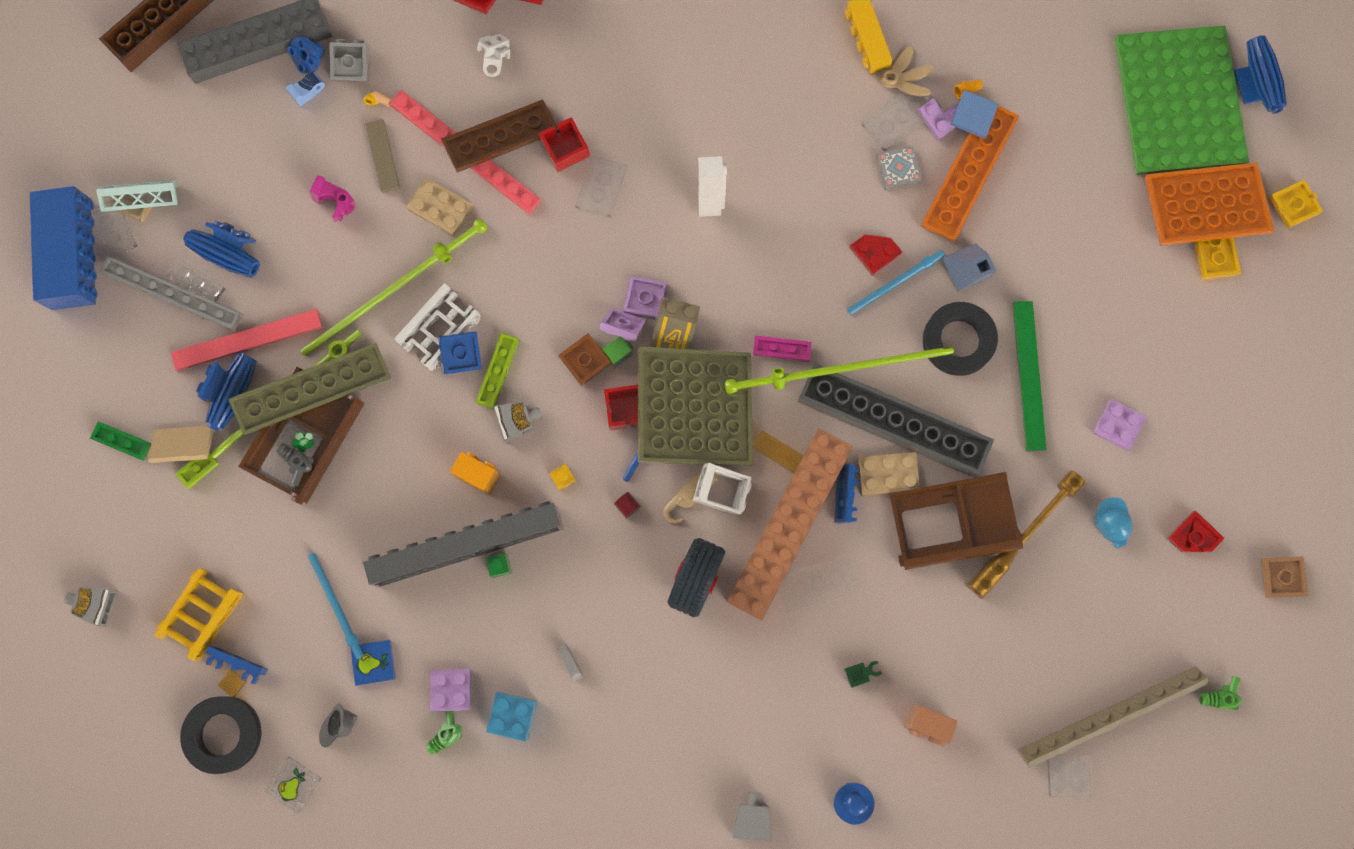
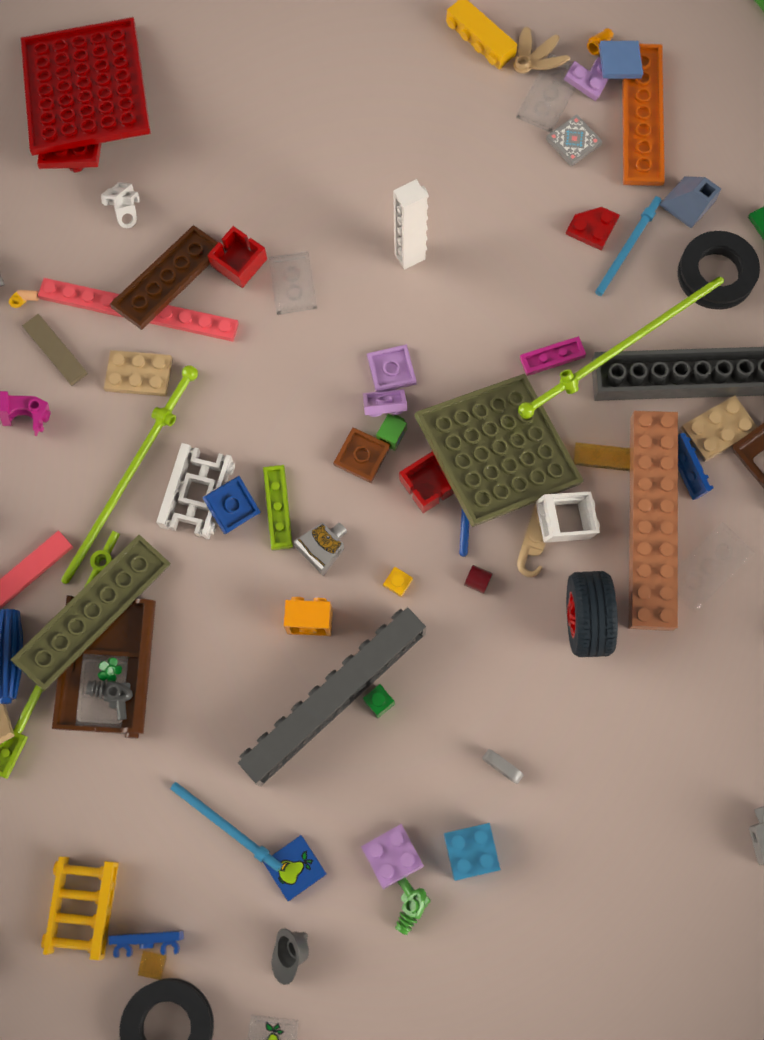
camera: 25 degrees left, 5 degrees down
(674, 324) = (435, 377): dark tan slope -> none

